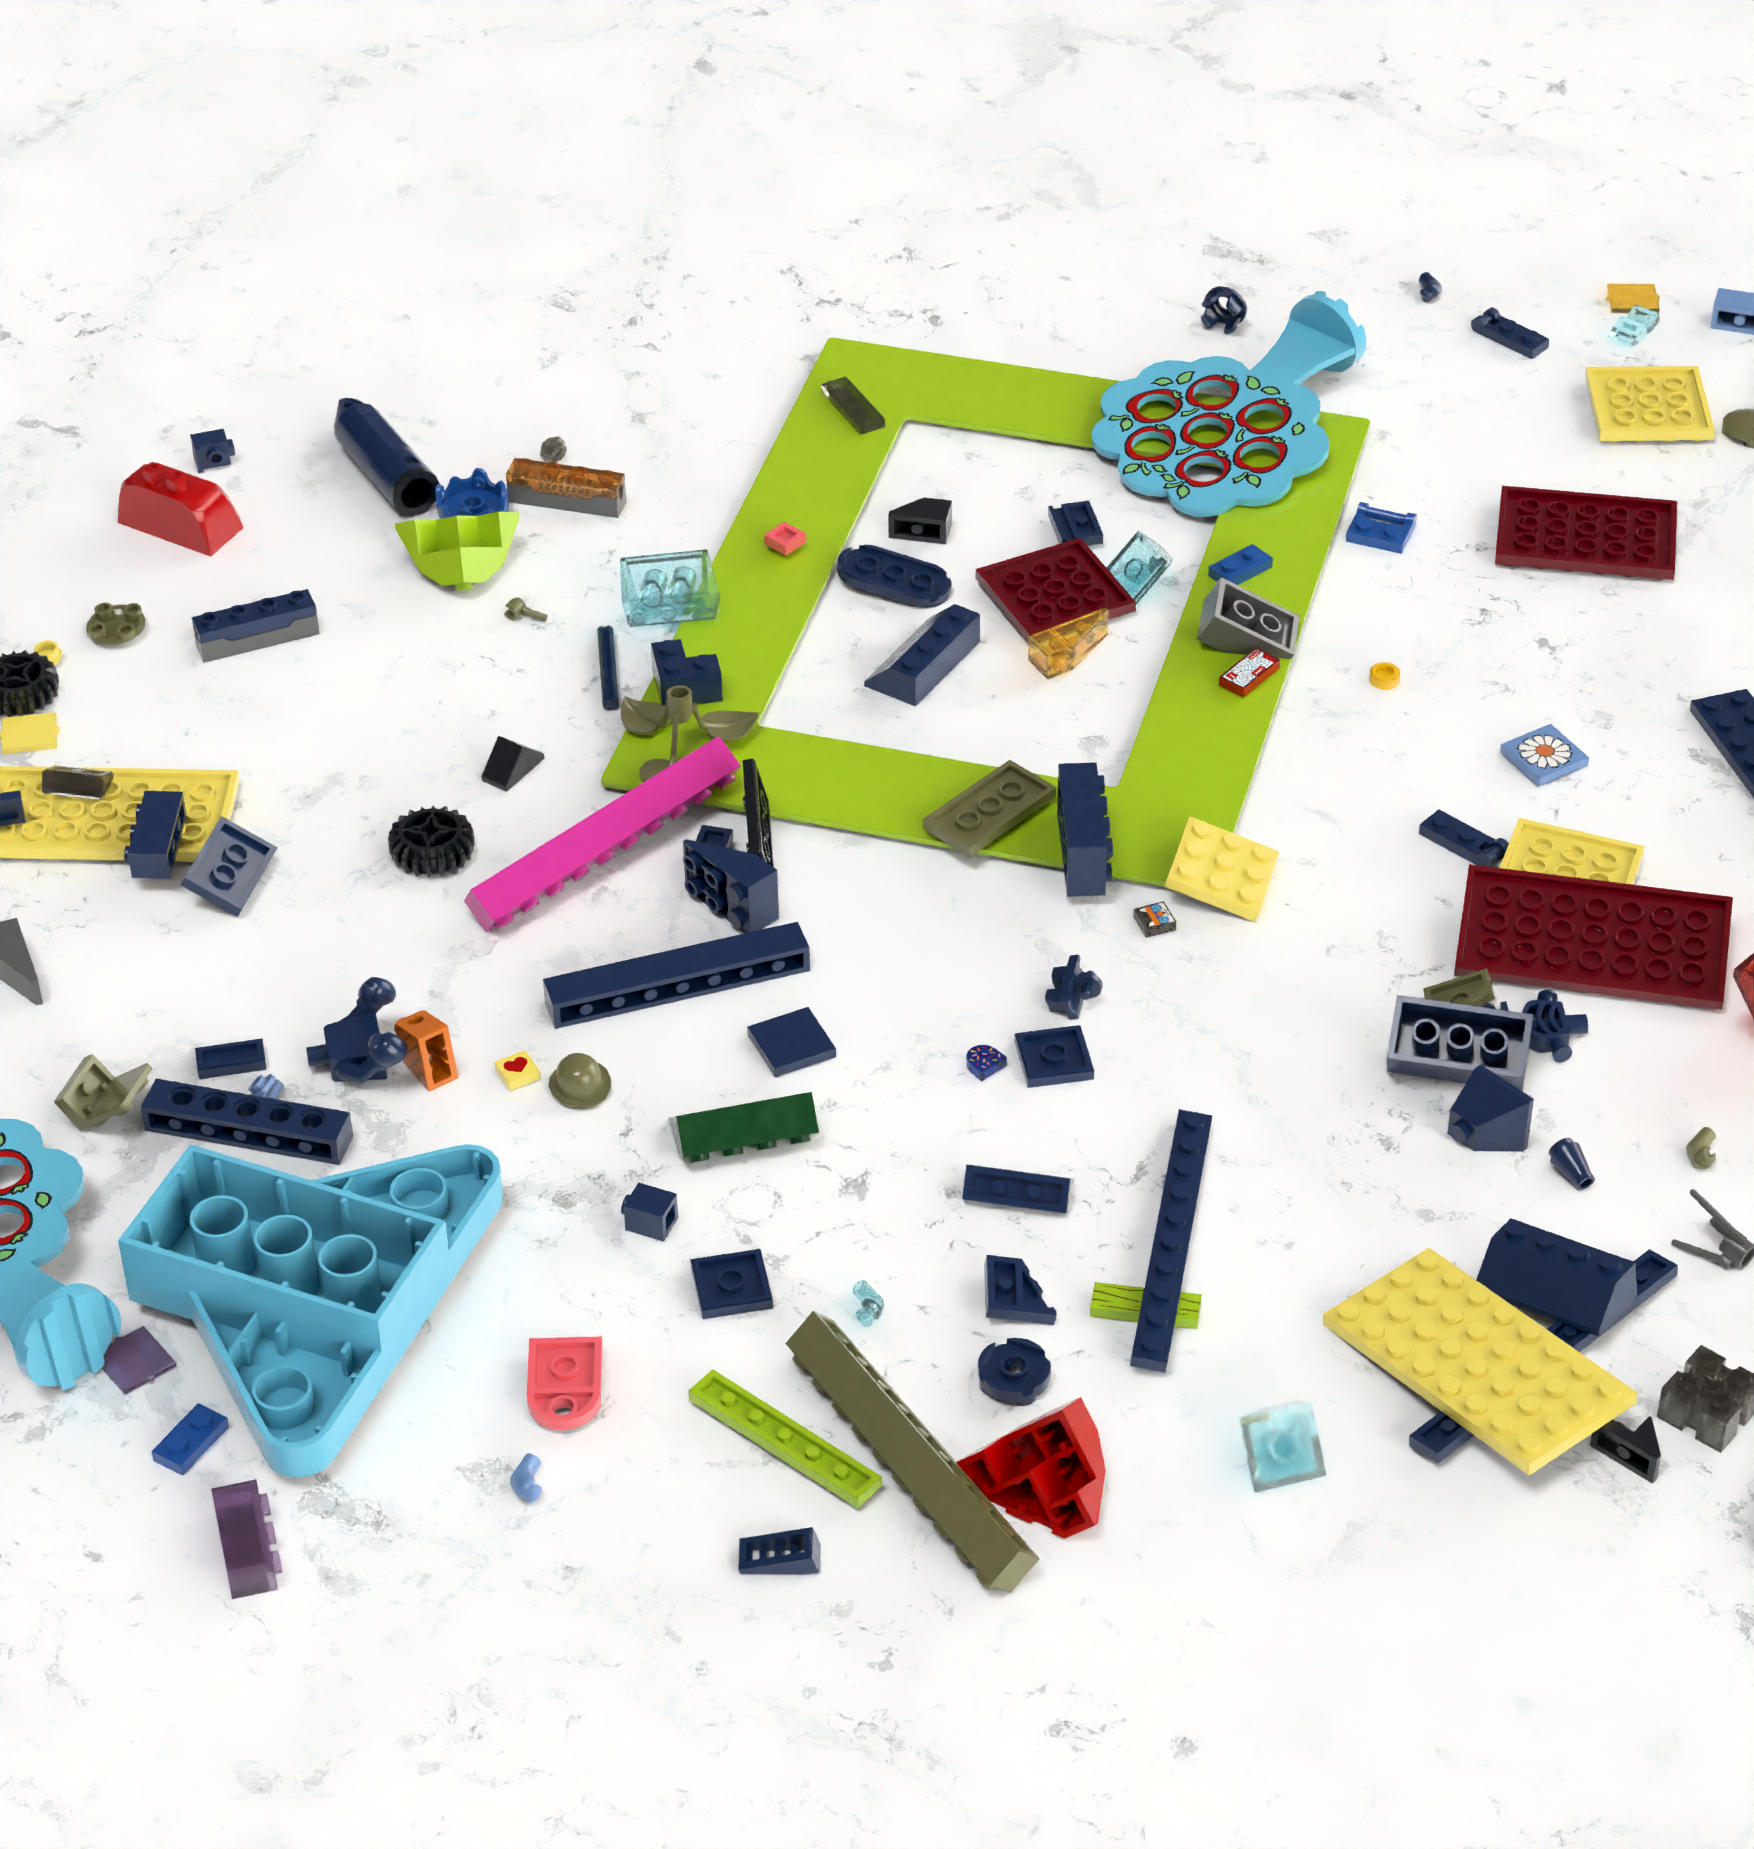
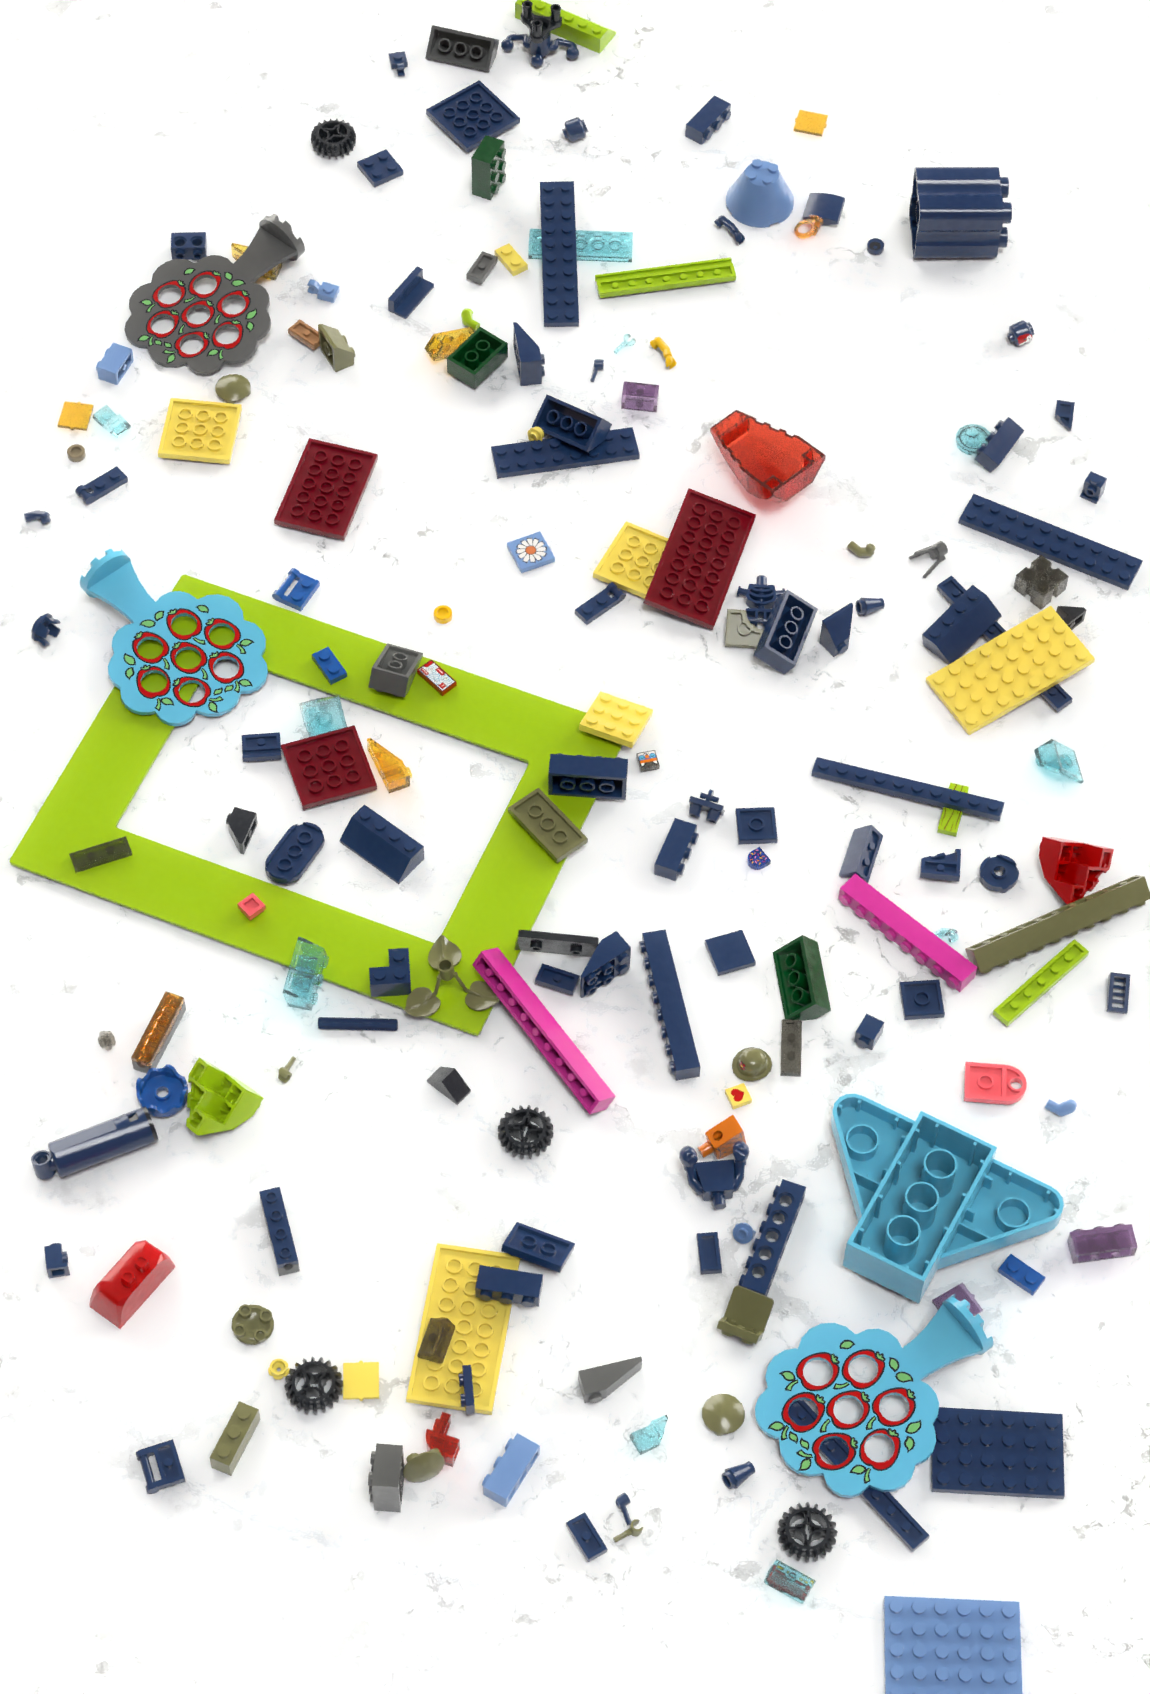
camera: 85 degrees left, 15 degrees up
(616, 1126) = (791, 1048): none -> clear smoke tile
(861, 1246) = (907, 933): none -> dark pink brick
(978, 957) = (676, 849): none -> dark blue brick
(1562, 306) = (76, 453): none -> dark tan tile

